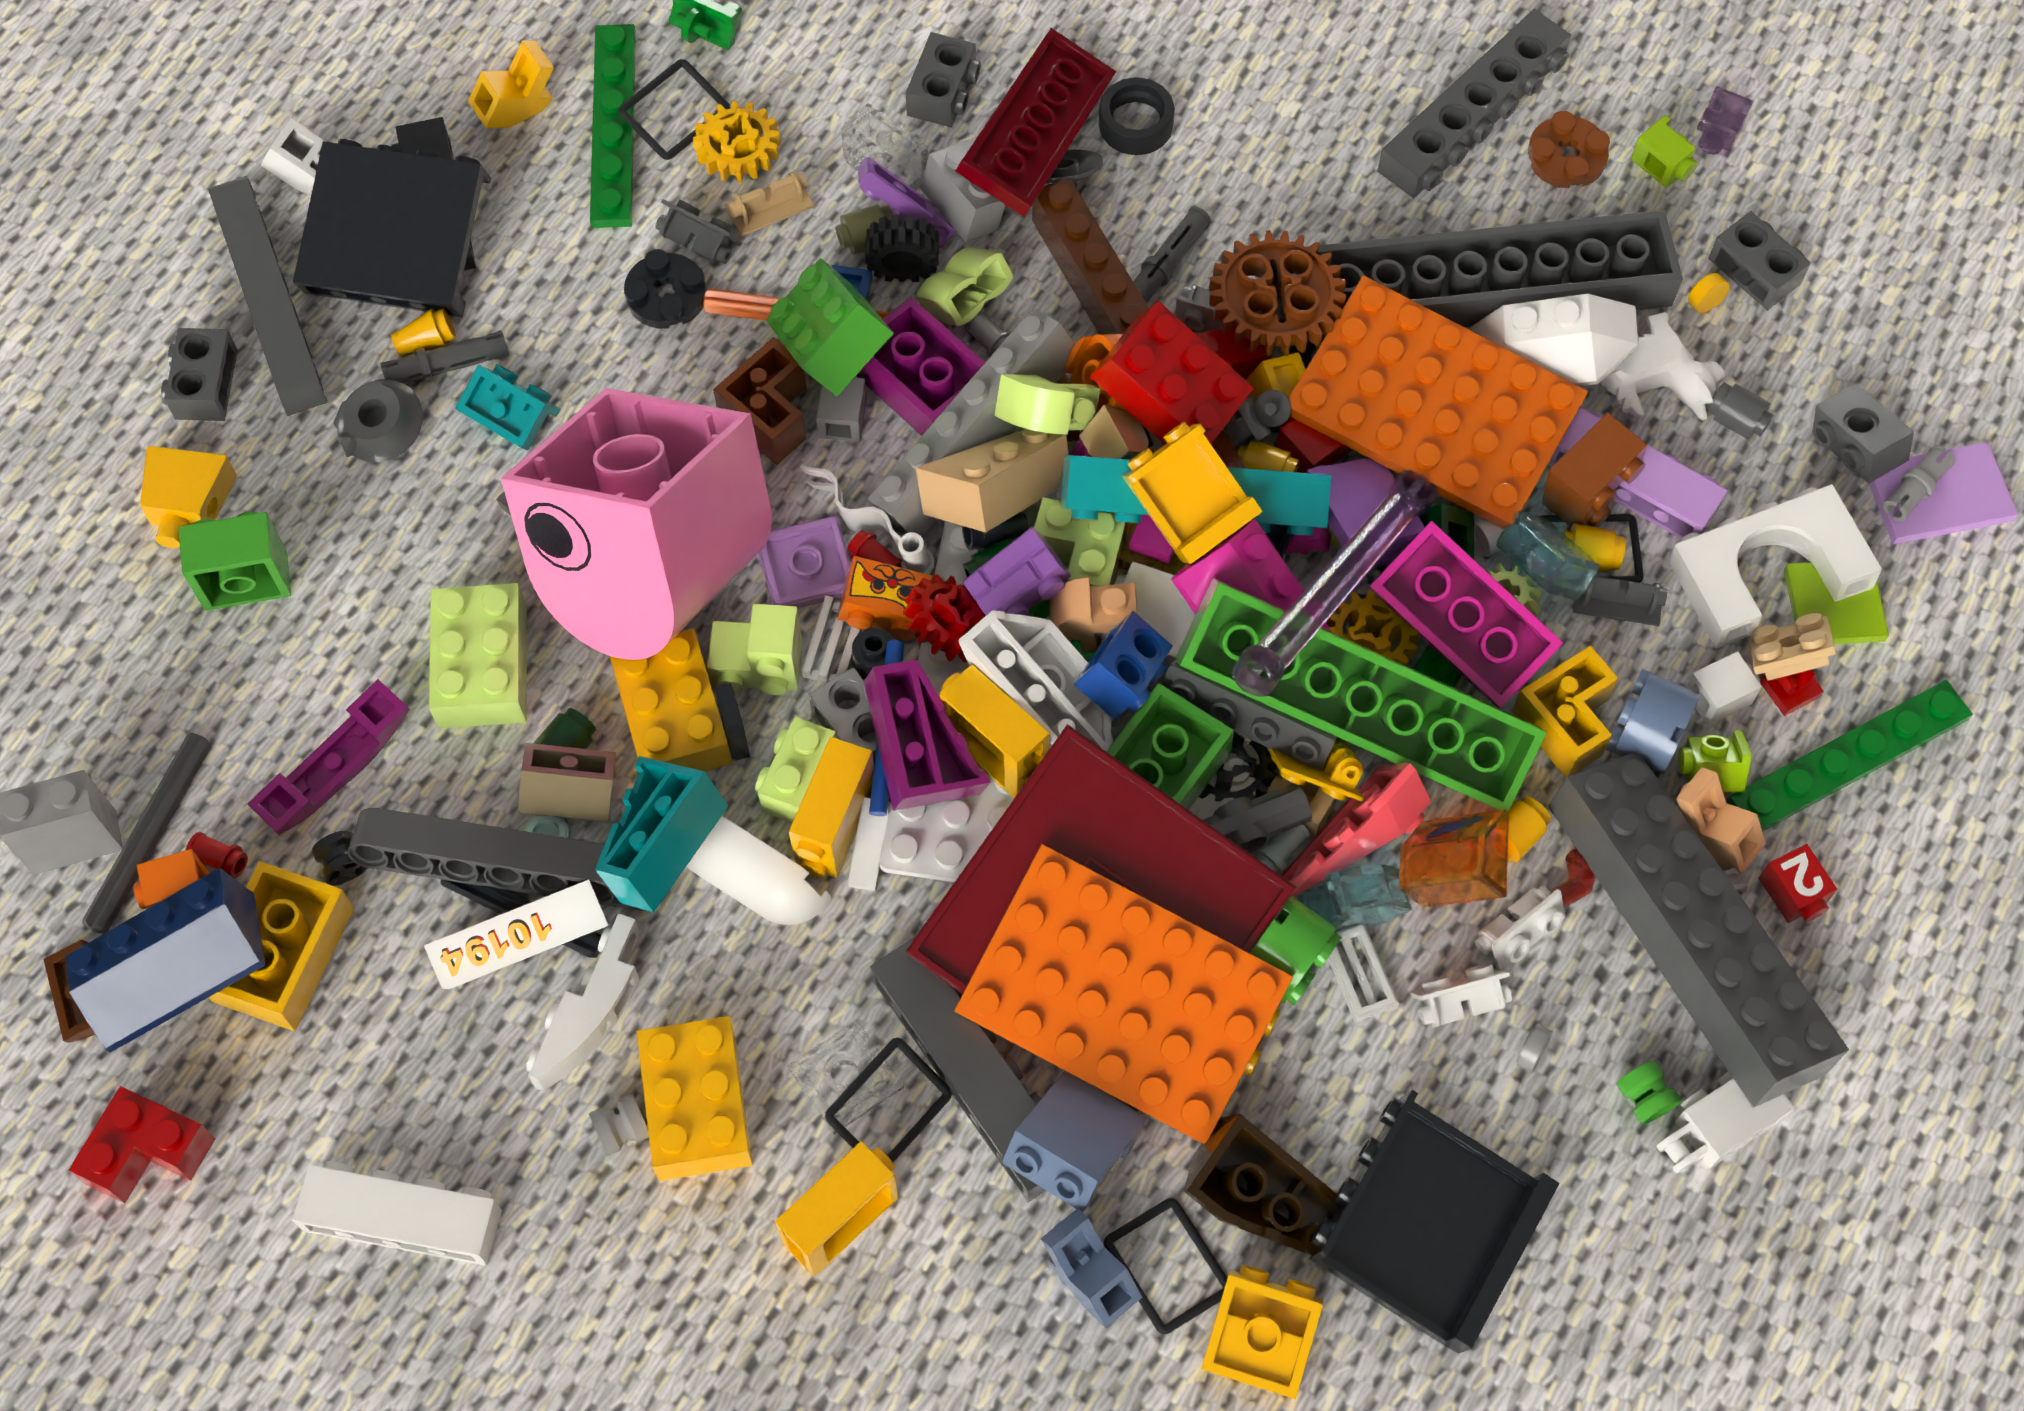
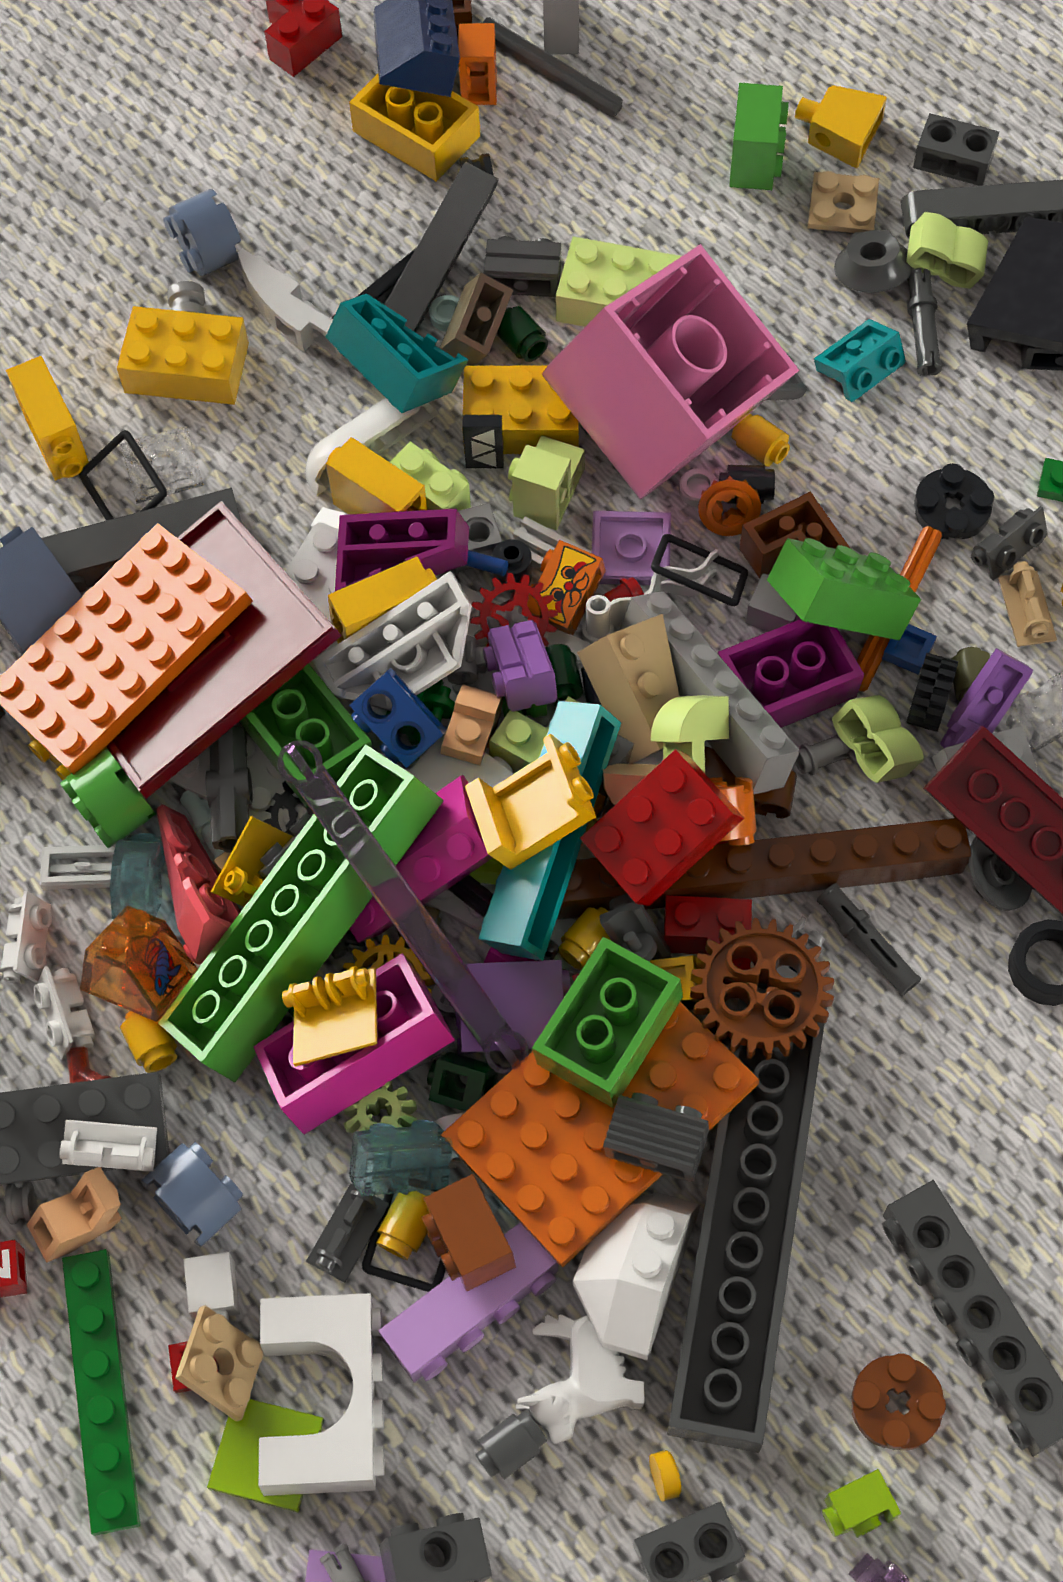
camera: 110 degrees right, 0 degrees up
(218, 855) = (512, 103): red pin -> none
(283, 453) = (833, 188): none -> tan piece
(334, 763) = (559, 181): magenta slope -> none
(349, 349) = (947, 250): none -> yellowish green brick
(398, 1213) = (181, 161): white brick -> none
(427, 331) = (953, 312): yellow cone -> none
(467, 766) = (524, 266): none -> dark grey brick
(515, 1129) = (203, 232): none -> sand blue brick
(516, 935) = (365, 258): white sticker -> none
(790, 524) = (692, 584): none -> black piece
(1374, 385) = (608, 1022): none -> bright green brick
(1459, 325) = (656, 1136): none -> dark grey brick
(1459, 620) = (333, 1014): none -> yellow hinge
(1564, 708) = (238, 1112): yellow brick -> none
(1672, 798) = (108, 1145): none -> white hinge
(1720, 754) = (125, 1249): lime brick -> none

